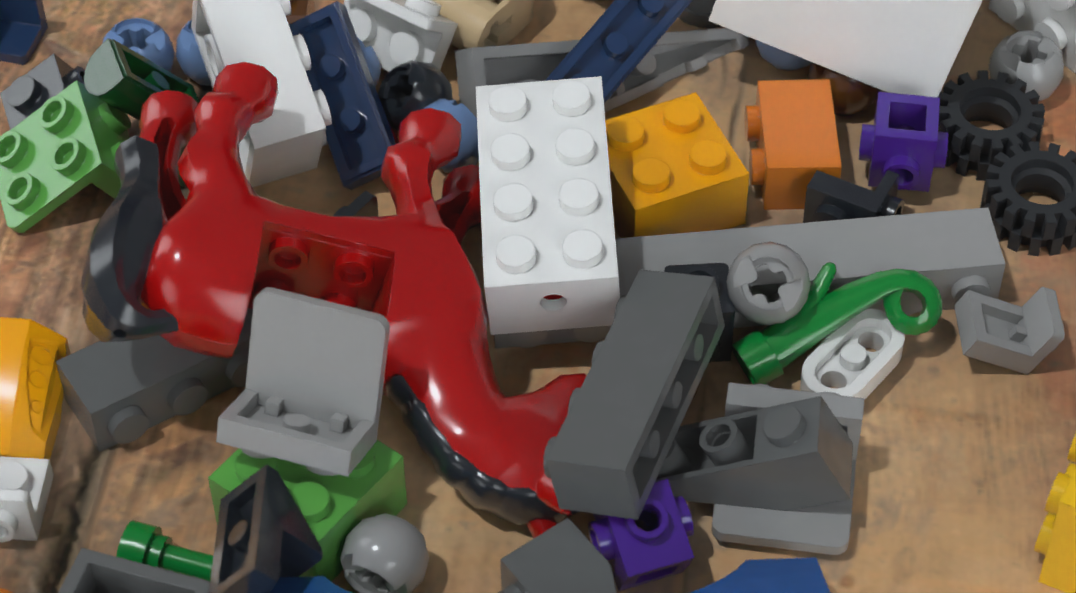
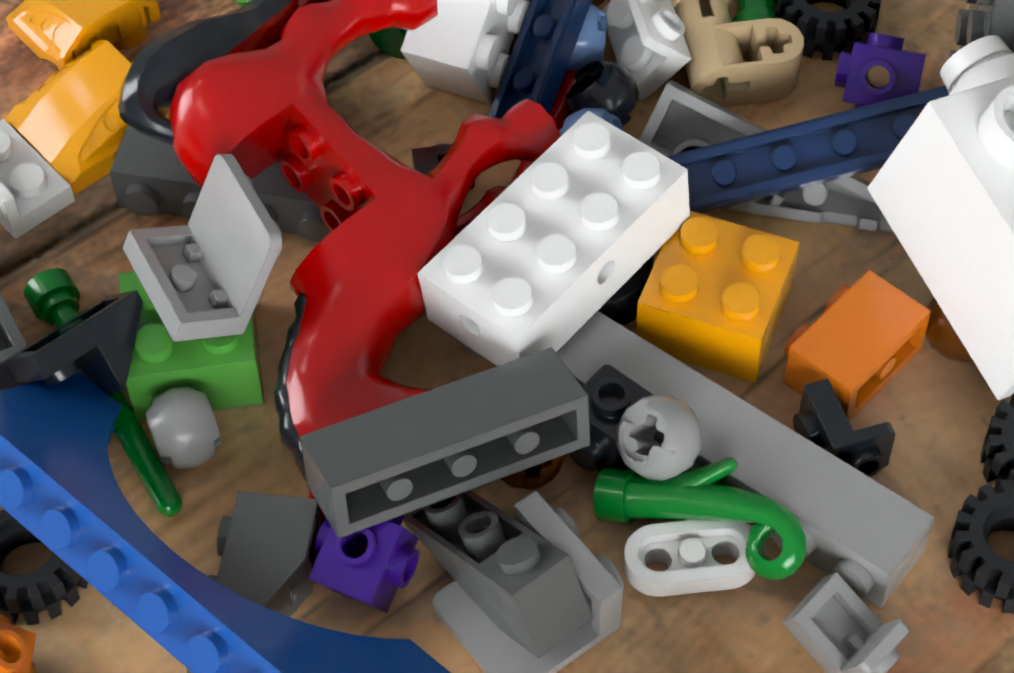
camera: 45 degrees right, 5 degrees up
(904, 140) = (938, 410): dark purple brick -> none

